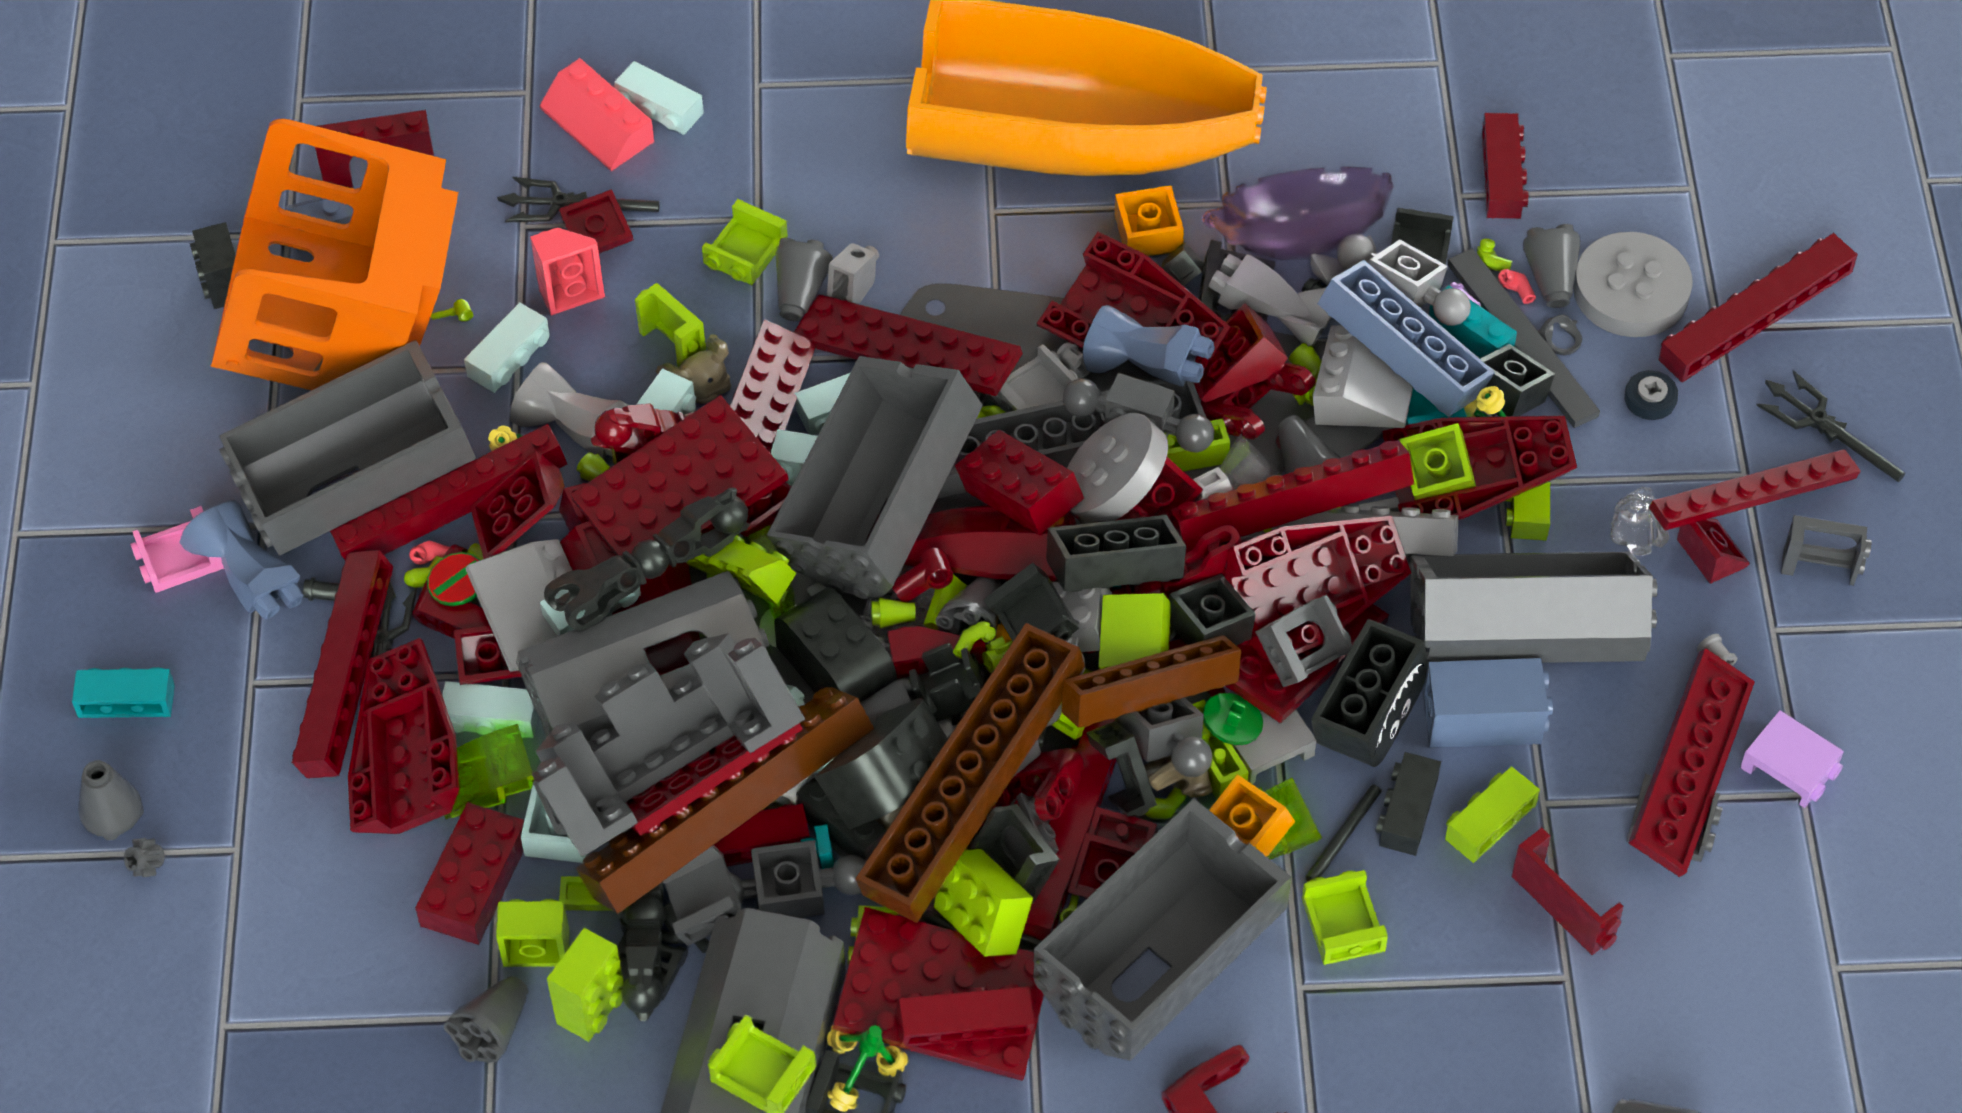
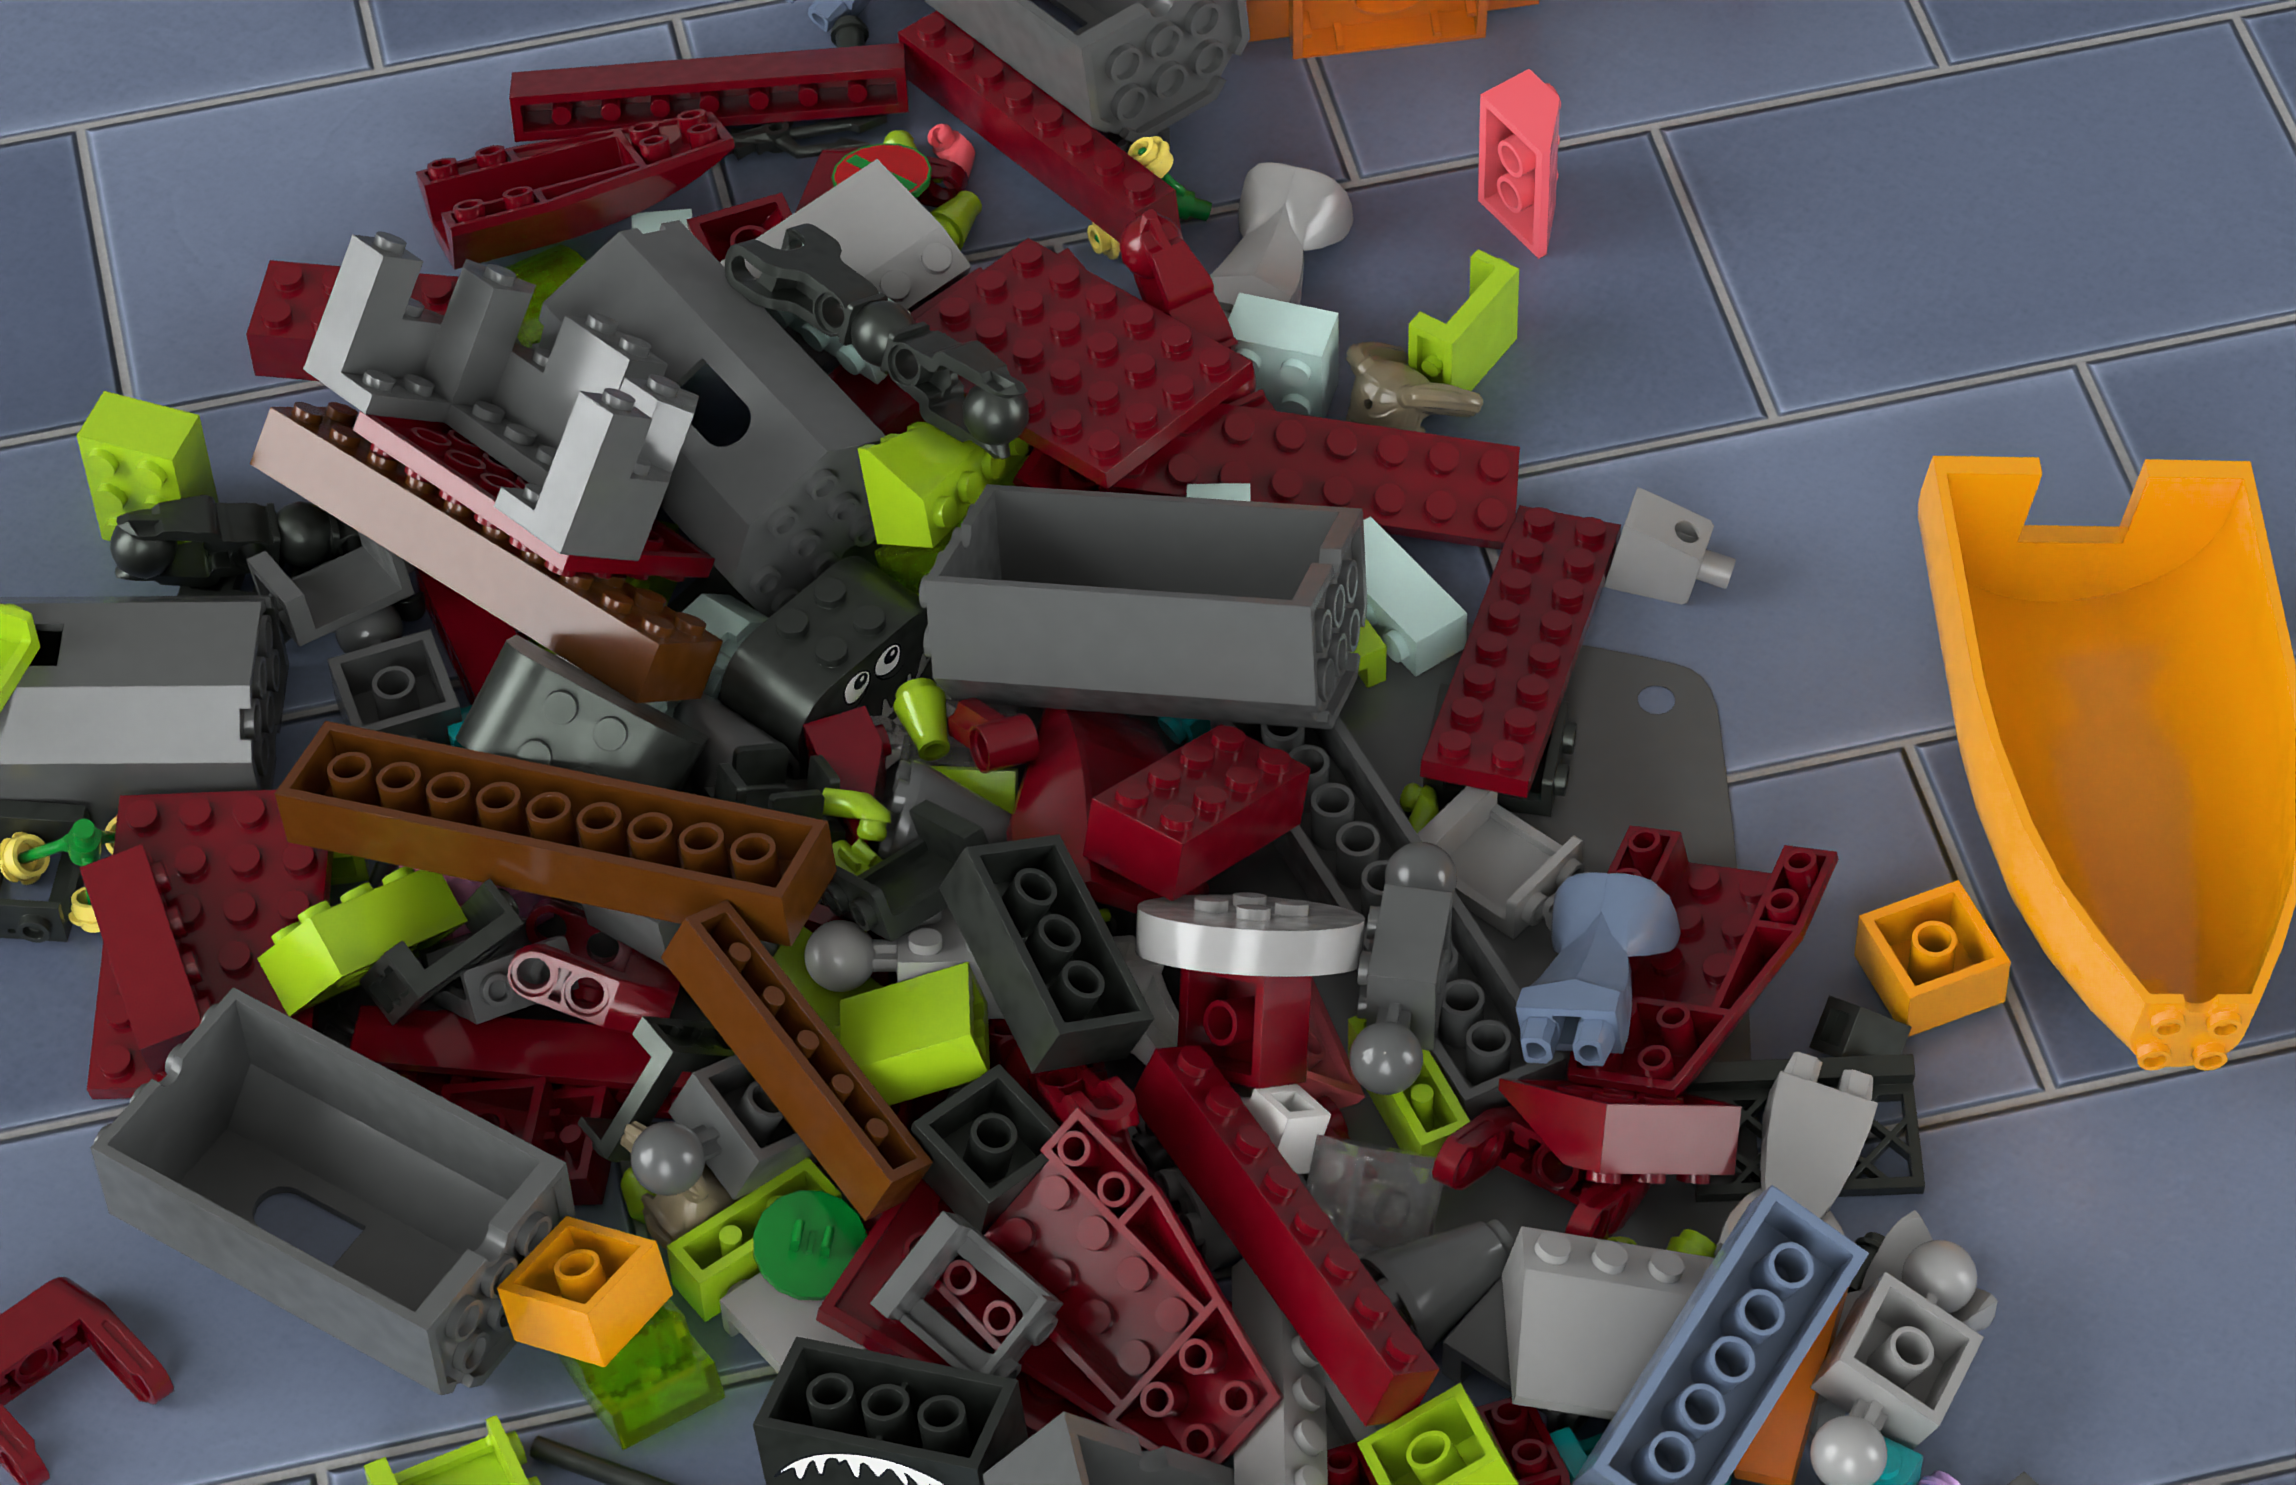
camera: 80 degrees right, 5 degrees down
(460, 308) = (1441, 85): lime hand -> none
(488, 1021) = (77, 381): dark grey cone -> none
(507, 347) = (1378, 149): light aqua brick -> none
(516, 503) = (1026, 202): dark red slope -> none
(532, 932) = (244, 389): lime brick -> none
(562, 200) = (1718, 168): pearl dark grey piece -> none
(597, 115) = (1915, 158): coral slope -> none
(598, 219) = (1674, 205): dark red tile -> none
(660, 97) = (1979, 225): light aqua brick -> none
(745, 243) = (1696, 407): lime panel -> none
(799, 275) = (1607, 482): dark grey cone -> none
(1301, 211) = (2015, 1172): clear purple windscreen -> none
(1424, 231) = (2038, 1421): pearl dark grey panel -> none

